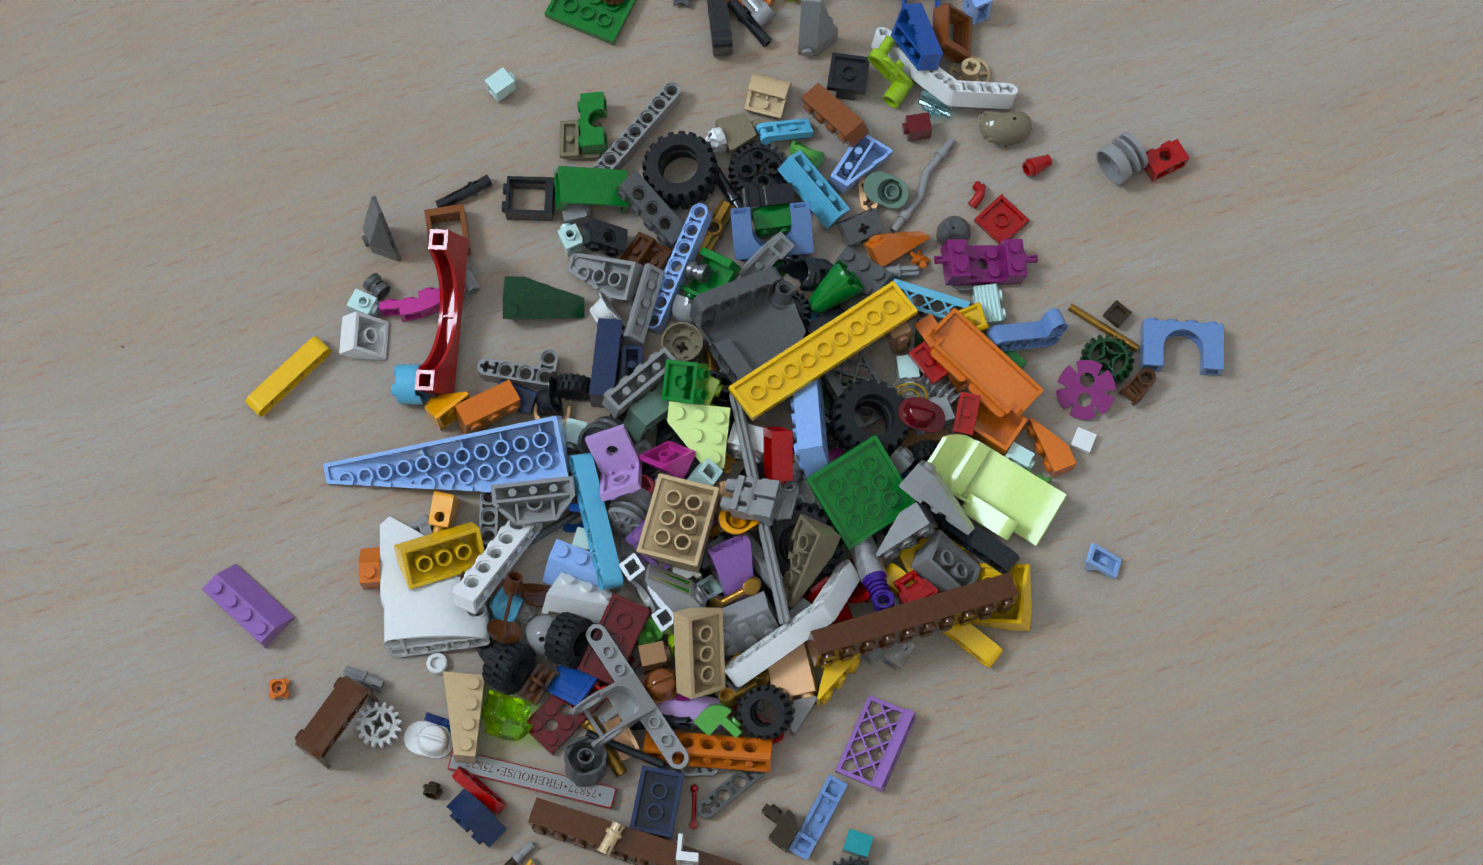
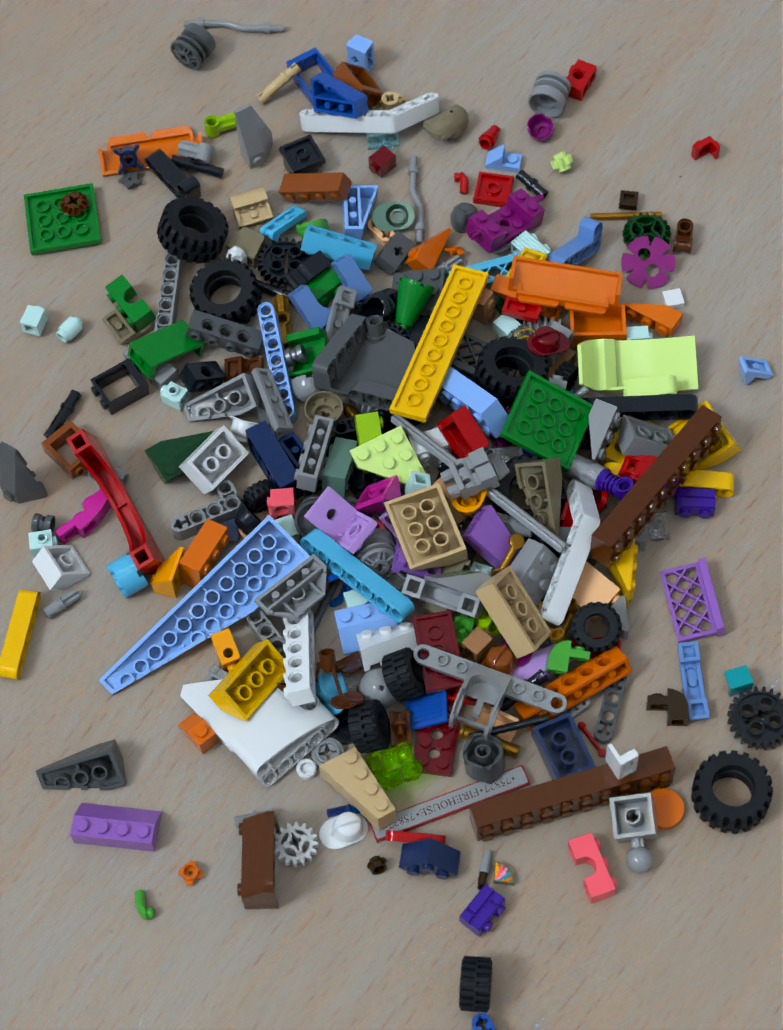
camera: 30 degrees left, 10 degrees down
(219, 688) = (140, 905): none -> bright green arm
(263, 538) = (91, 768): none -> dark grey wedge
(342, 371) = (61, 603): none -> light grey axle
(473, 658) = (333, 745): none -> light grey gear
(526, 113) = (69, 329): none -> light aqua brick
(556, 325) = (214, 459): none -> white brick
(584, 407) = (281, 503): none -> coral brick
(611, 838) = (553, 793): tan pin -> none
(680, 102) = (187, 243): none -> black tyre
(685, 382) = (352, 427): green plate -> none
(900, 82) = (334, 135): lime piece -> none
(927, 485) = (596, 385): light grey wedge -> none
(948, 652) = (695, 502): none -> dark purple brick
(966, 413) = (578, 324): red plate -> none
(1032, 197) = (502, 160): none -> light blue slope
(1039, 239) = (531, 183): none -> black pin
(1083, 234) = (562, 161): none -> yellowish green gear
(1089, 186) = (540, 127): none -> magenta hair
(1207, 337) = (704, 176): medium blue arch -> none
(1228, 306) = (704, 147): none -> red bracket

